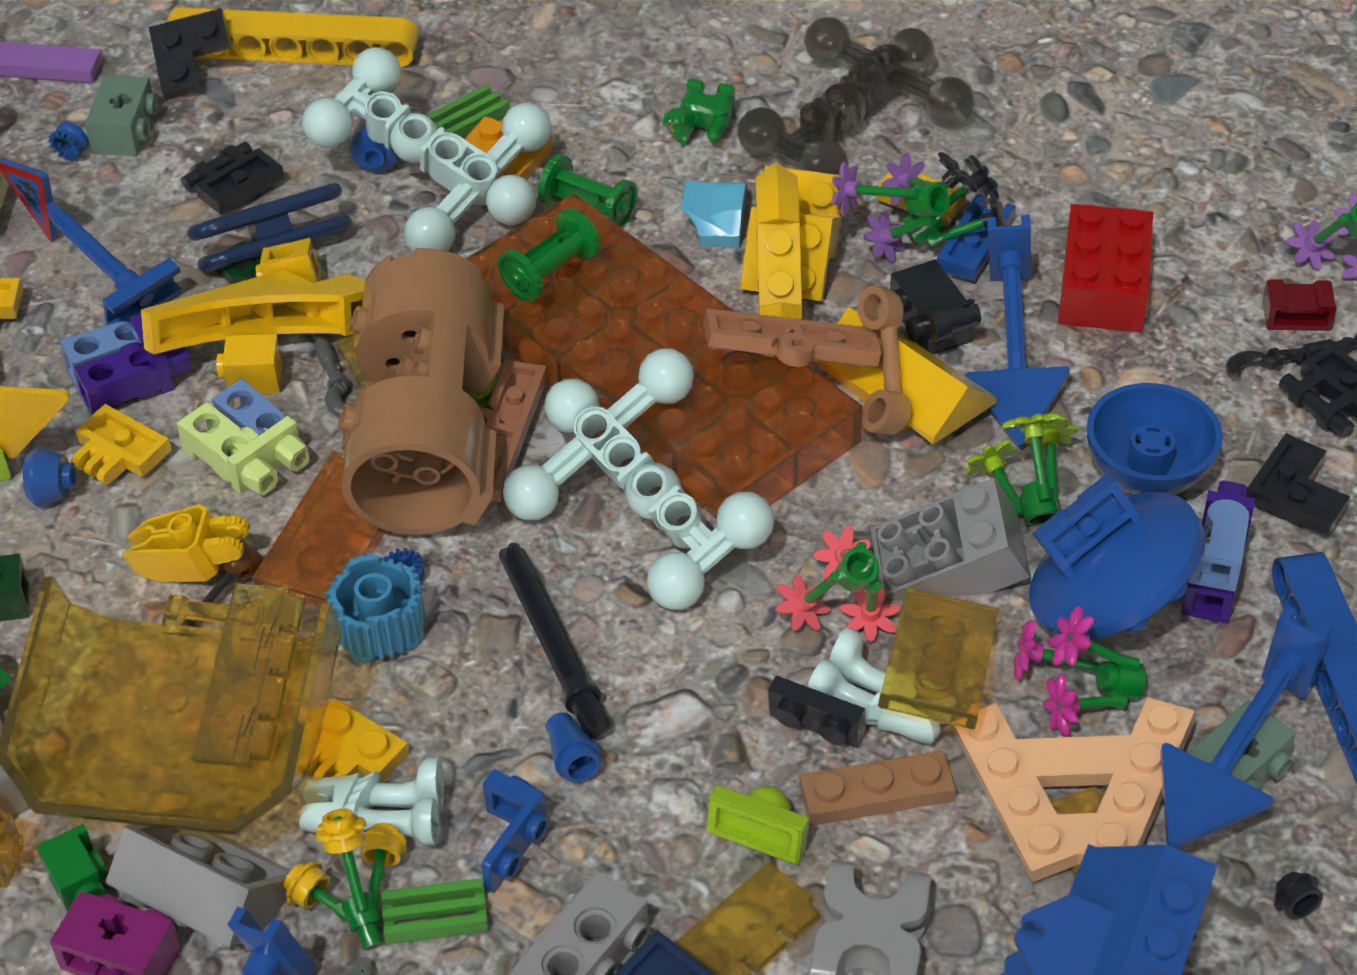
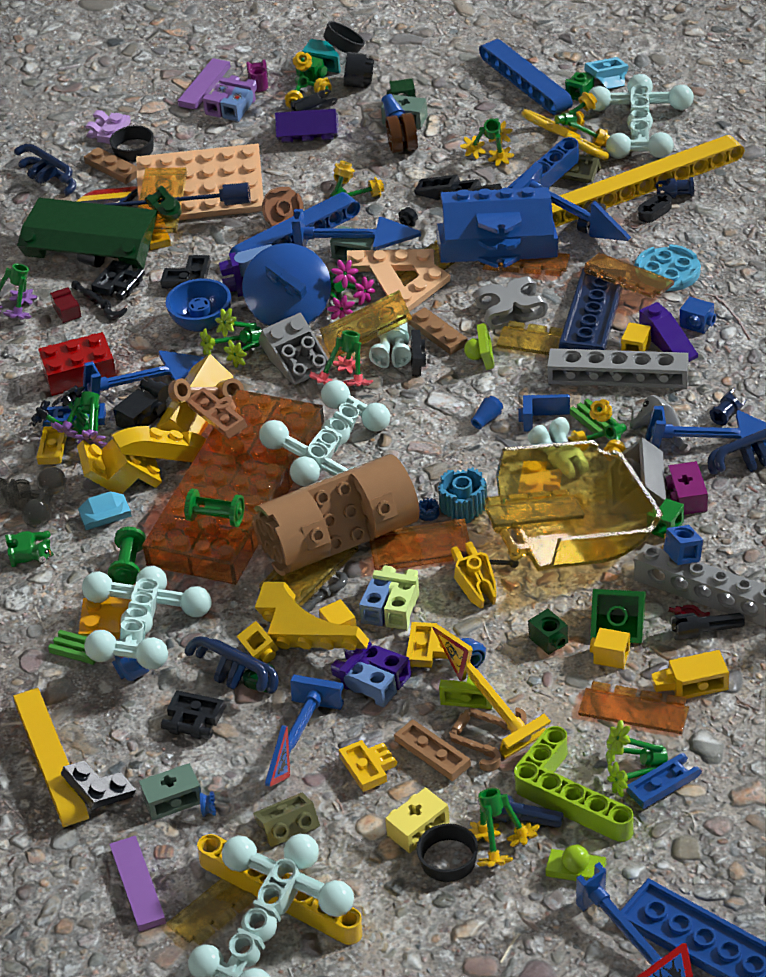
camera: 115 degrees left, 5 degrees down
(581, 696) = (457, 422): black axle -> none

